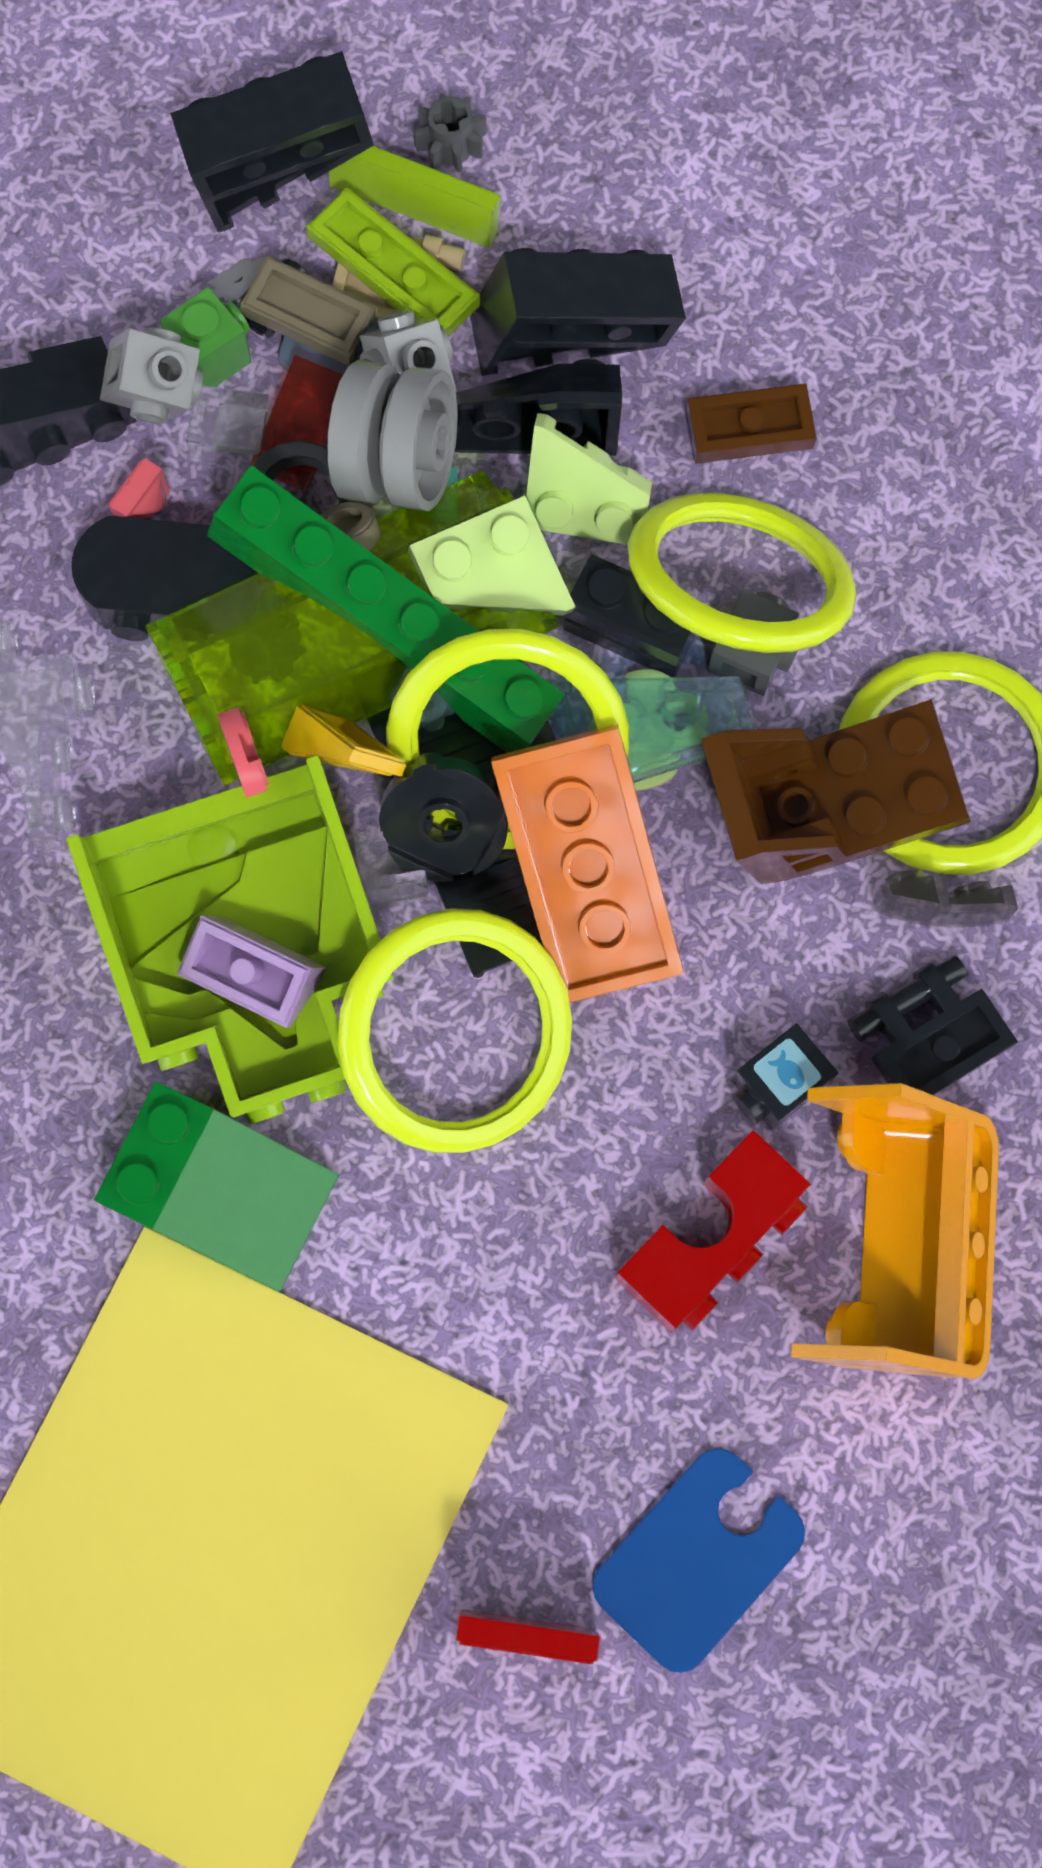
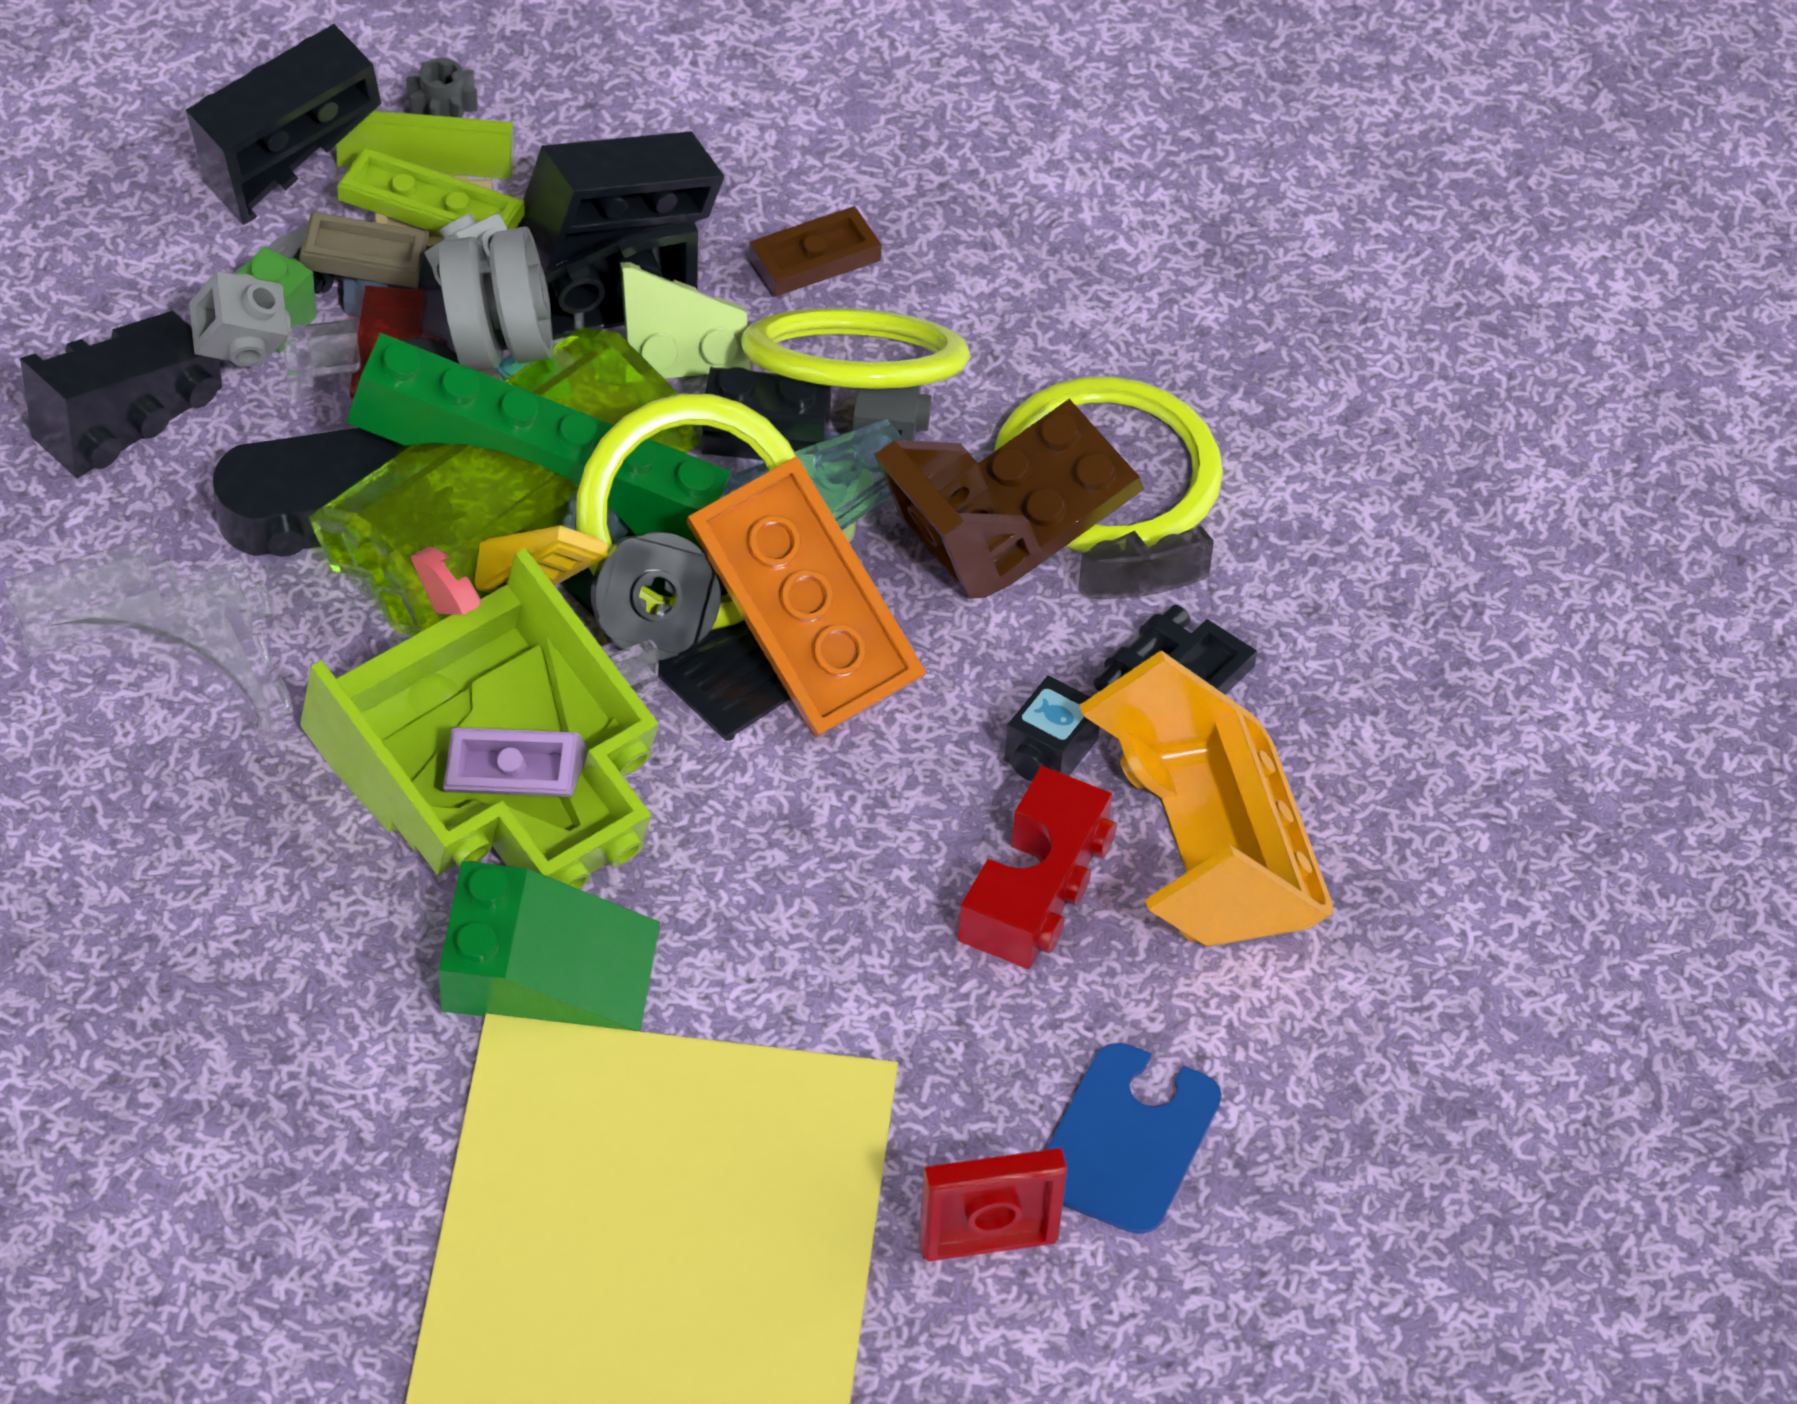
camera: 20 degrees left, 25 degrees down
(141, 493) = (256, 422): coral tile -> none
(360, 1000) = (664, 814): neon yellow wedge -> none
(493, 564) = (620, 375): yellowish green wing -> none

